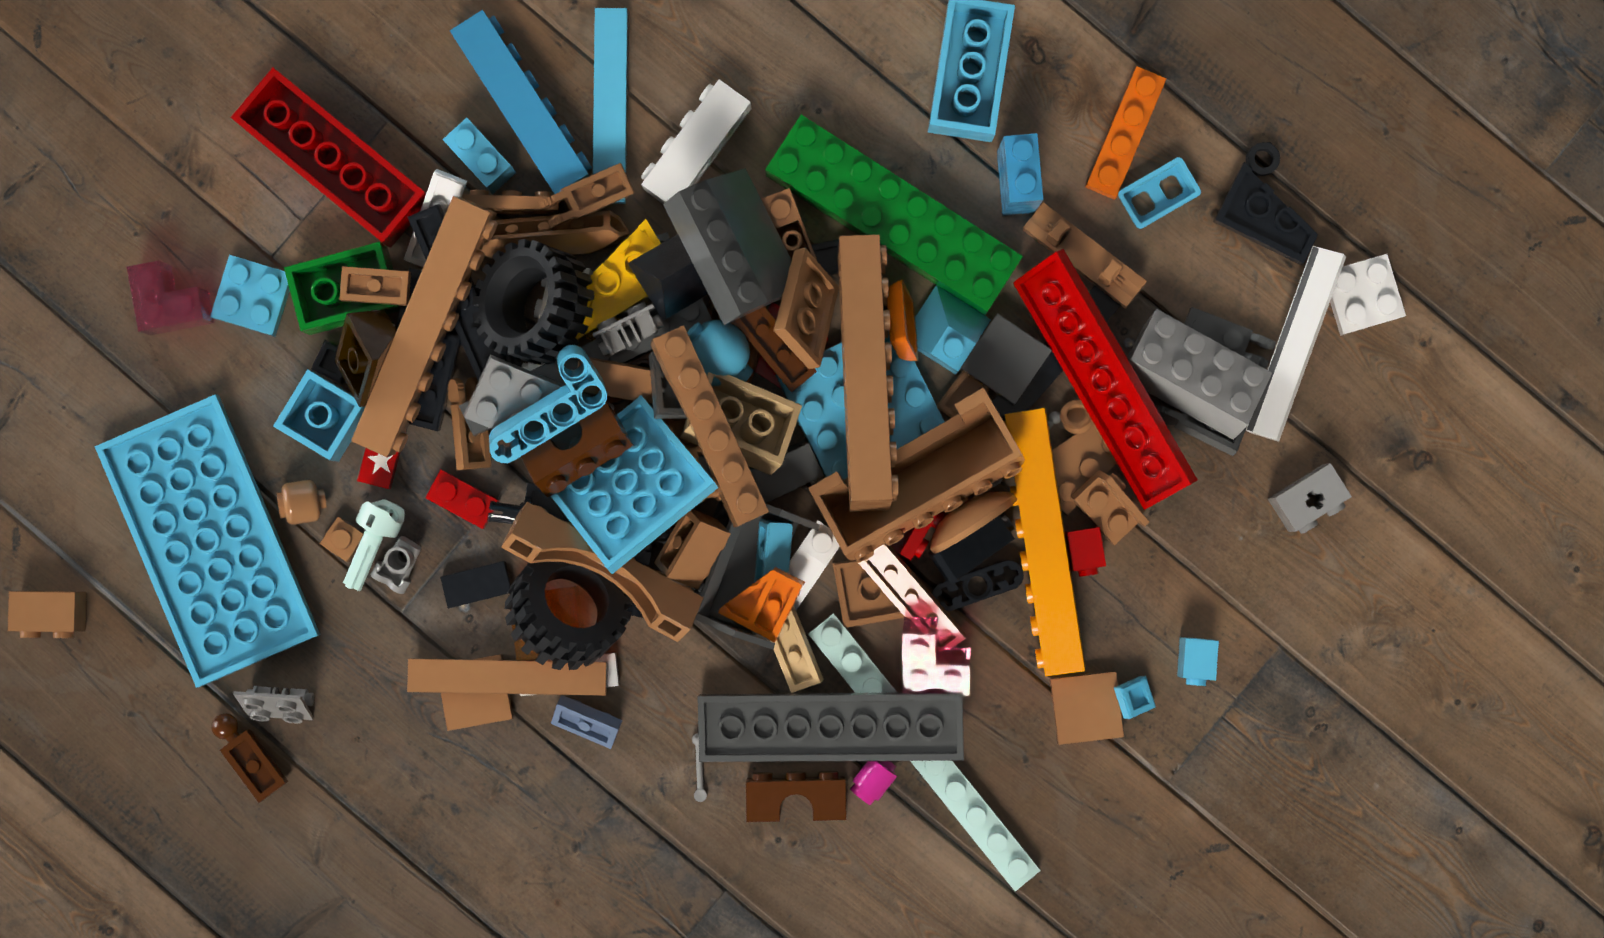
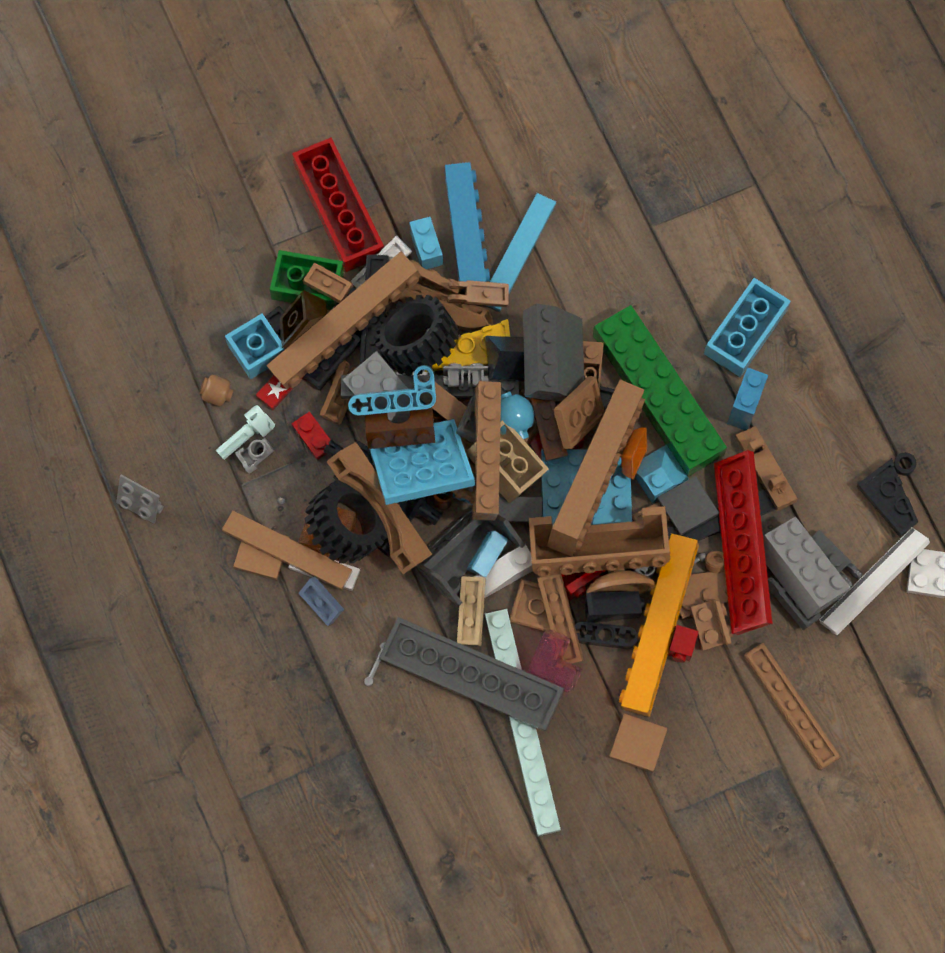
camera: 20 degrees right, 15 degrees down
(47, 612) = (31, 383): medium nougat brick -> none
(160, 306) = (195, 243): clear pink brick -> none
(207, 540) = (148, 388): medium azure plate -> none
(248, 758) = (104, 525): reddish brown plate -> none
(251, 296) = (249, 261): medium azure plate -> none
(342, 539) = (228, 424): medium nougat plate -> none
(476, 584) = (294, 488): black tile -> none
(692, 548) = (440, 524): medium nougat brick -> none
(697, 143) = (565, 291): white brick -> none
(765, 603) = (468, 577): orange wing -> none
(767, 793) = (411, 698): reddish brown arch -> none
(873, 780) = (482, 721): dark pink brick -> none
(1125, 132) = (825, 409): orange plate -> none
(1134, 697) = (672, 749): medium azure tile -> none
(1150, 185) = (827, 446): medium azure piece -> none
(1197, 660) = (723, 744): medium azure brick -> none
(1261, 562) = (792, 706): none -> medium nougat tile
(1291, 503) = (851, 672): light grey brick -> none

